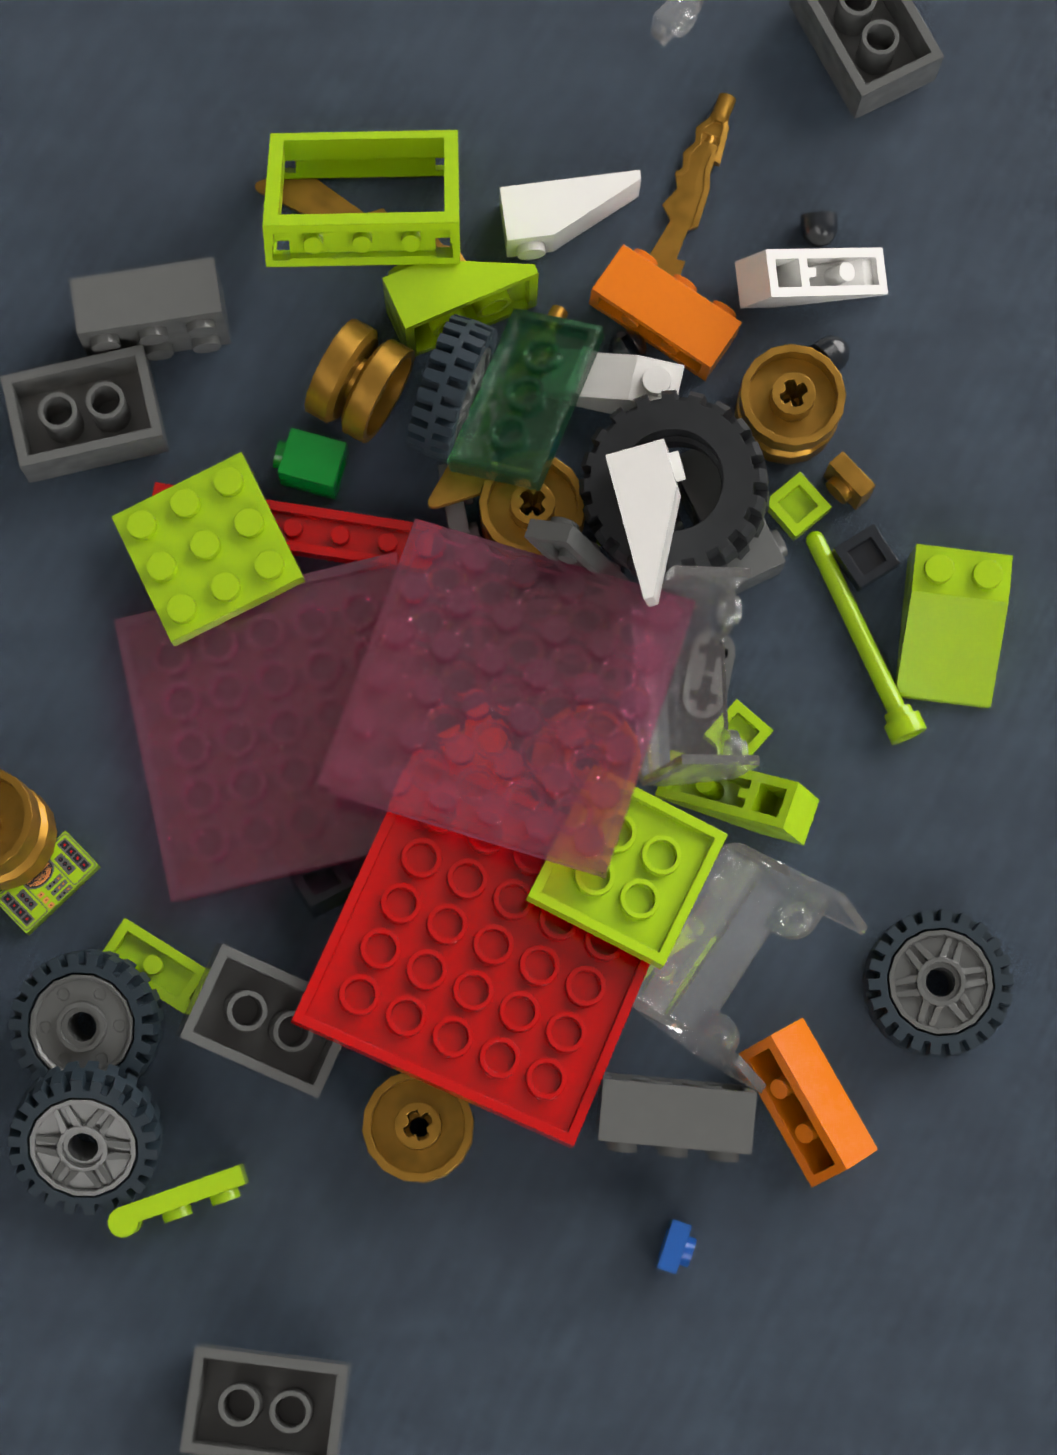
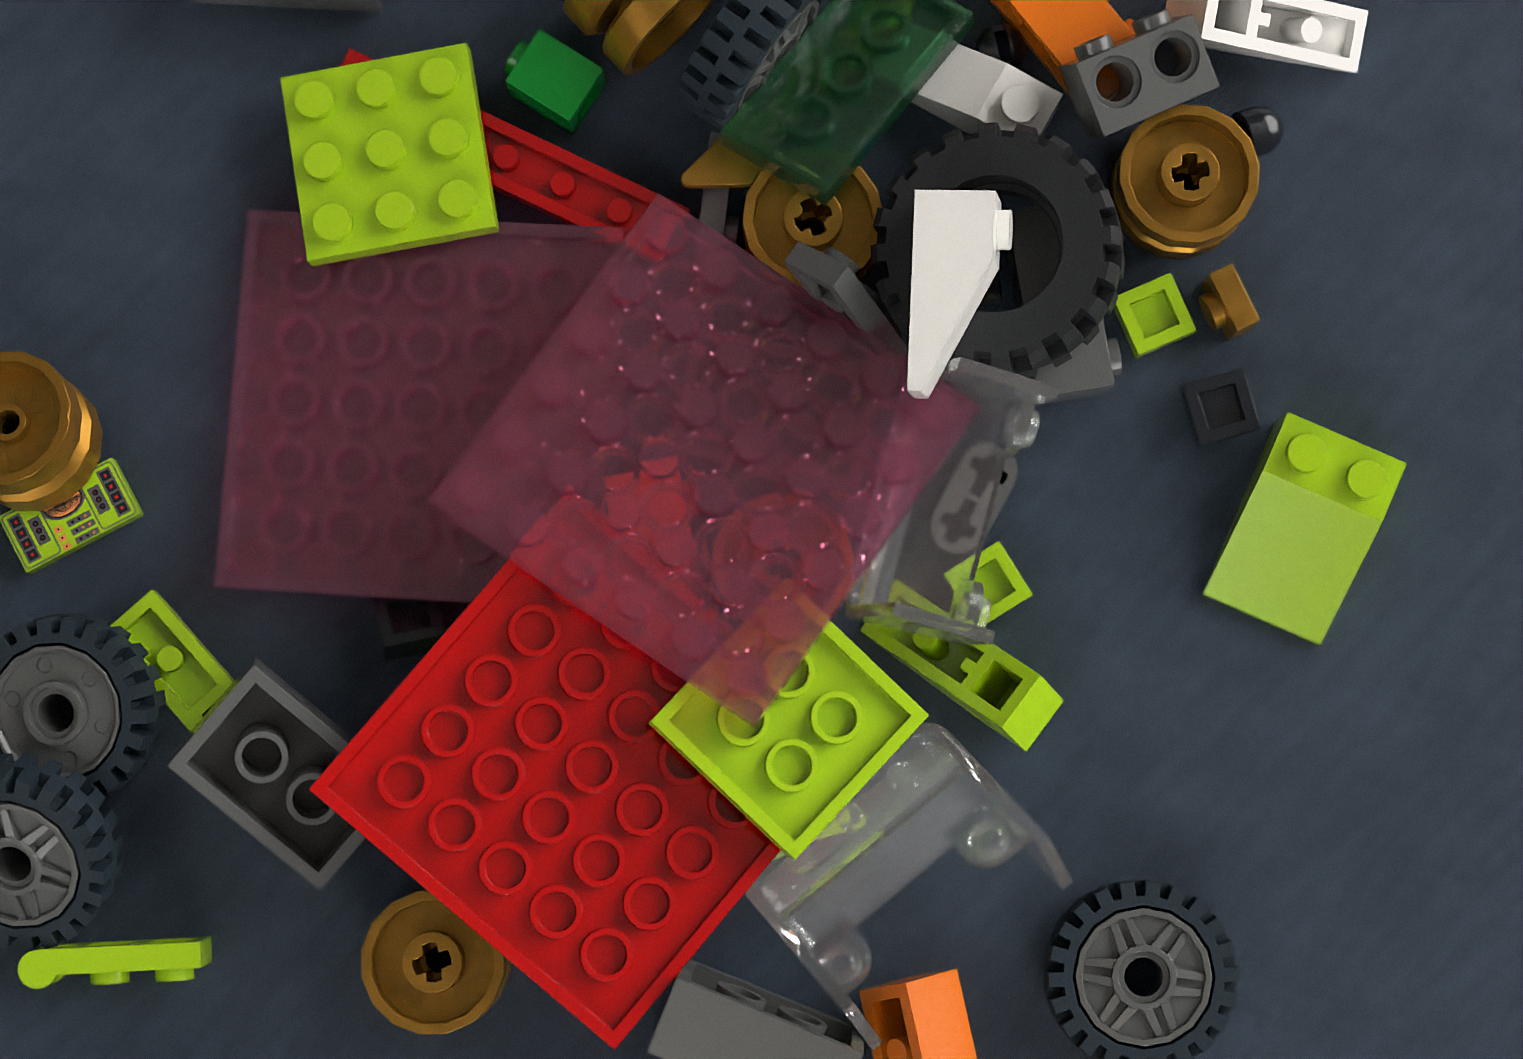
camera: 20 degrees right, 5 degrees up
(739, 341) = (1142, 86): none -> dark grey brick
(900, 718) = (1200, 627): lime piece -> none

